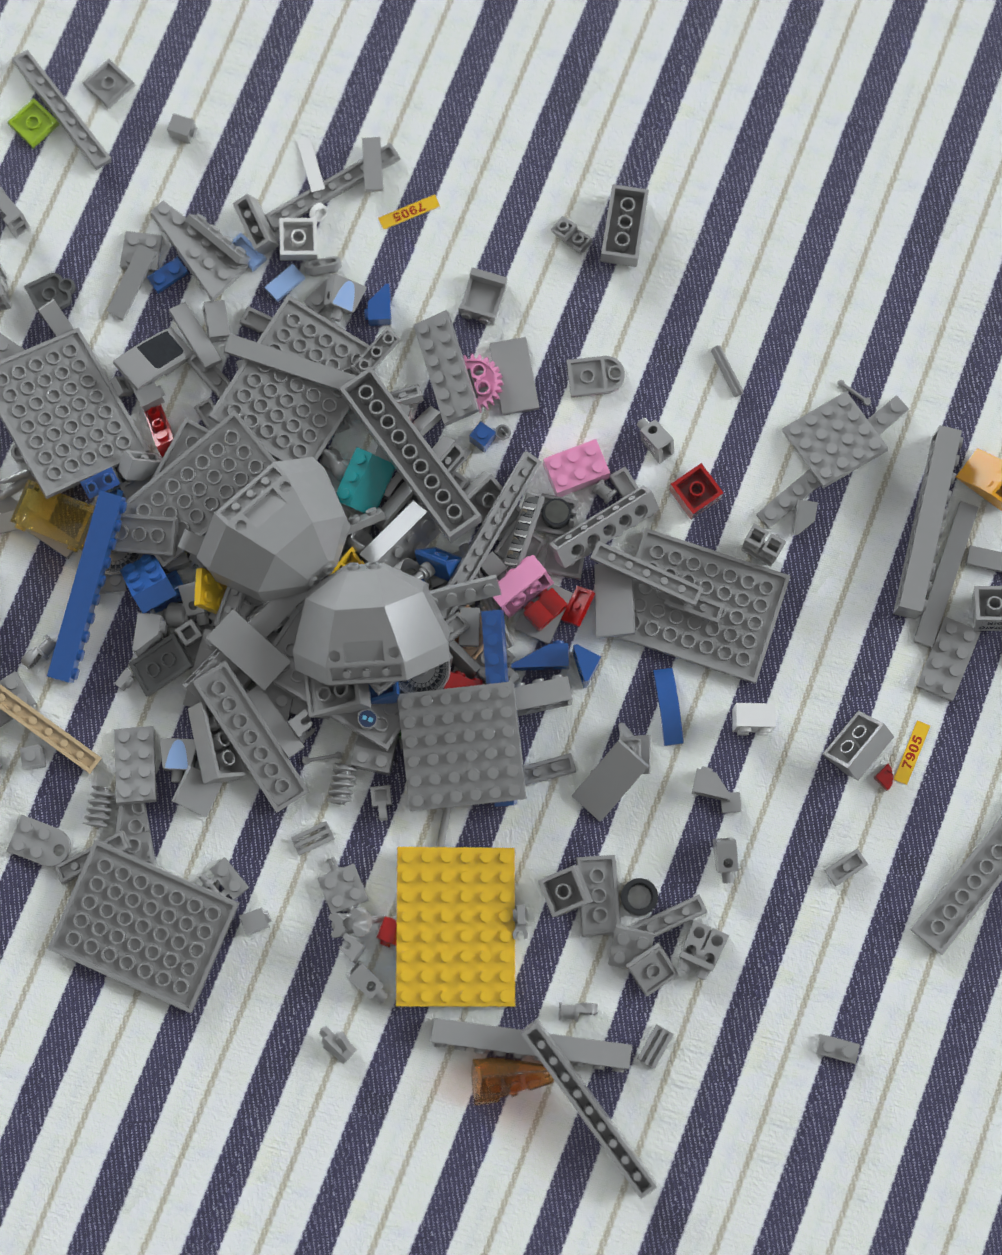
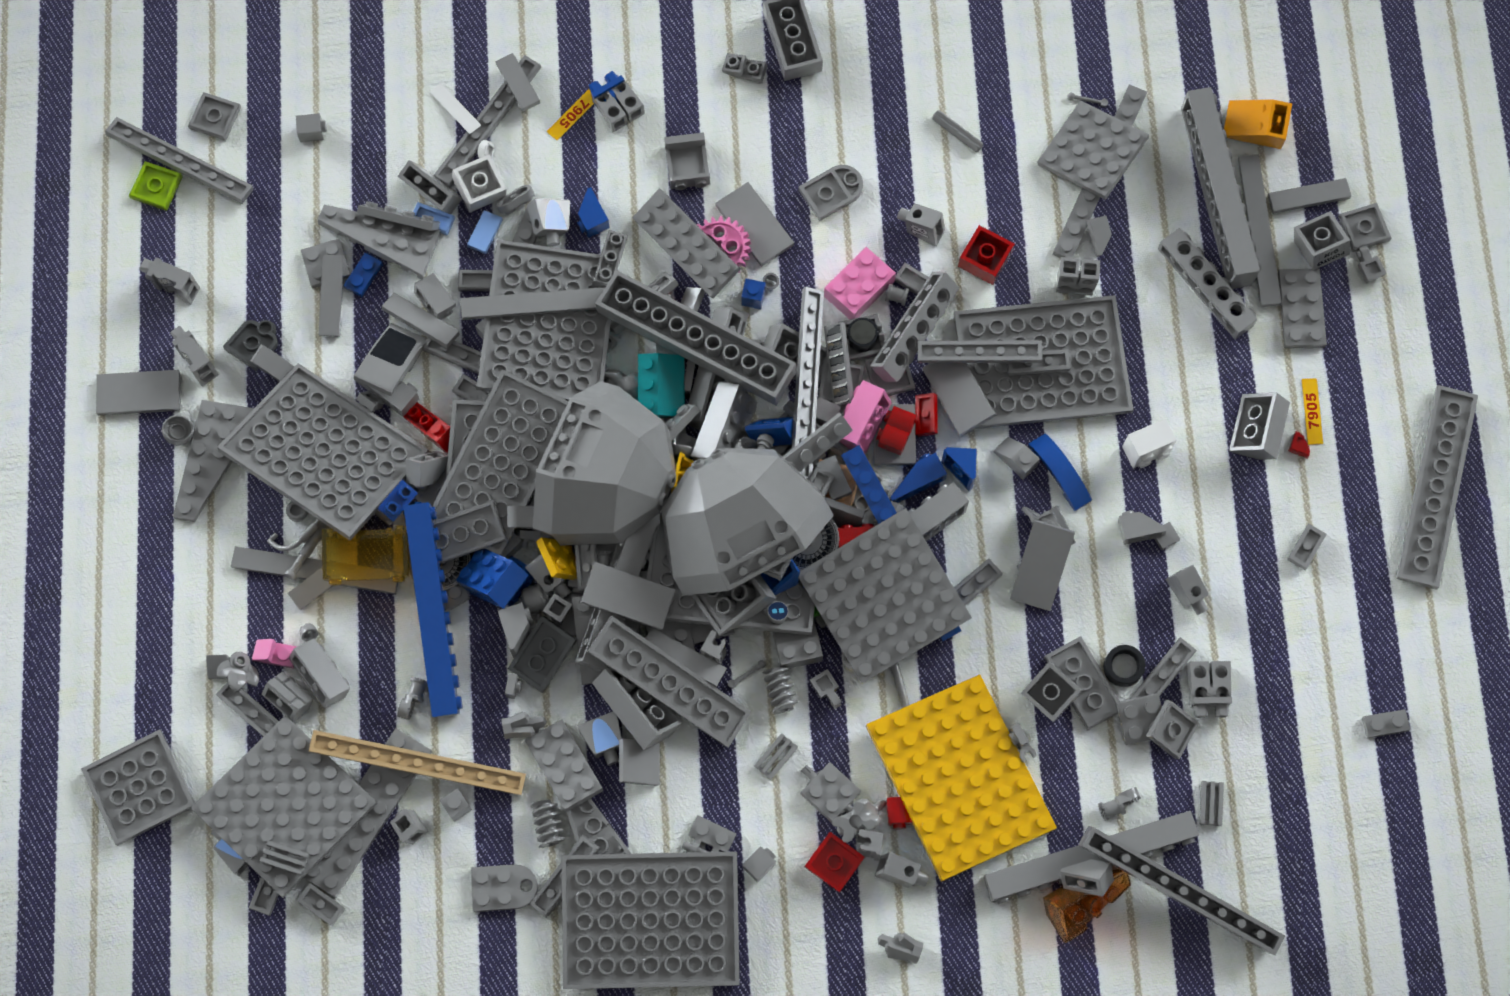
camera: 25 degrees left, 5 degrees down
(116, 717) = (522, 726): none -> light grey rock
(317, 948) = (834, 862): none -> red plate
(447, 210) = (616, 101): none -> light grey hips
(517, 1061) = (1088, 877): none -> light grey slope
(637, 677) = (1017, 457): none -> light grey slope
(882, 648) = (1207, 293): none -> light grey brick

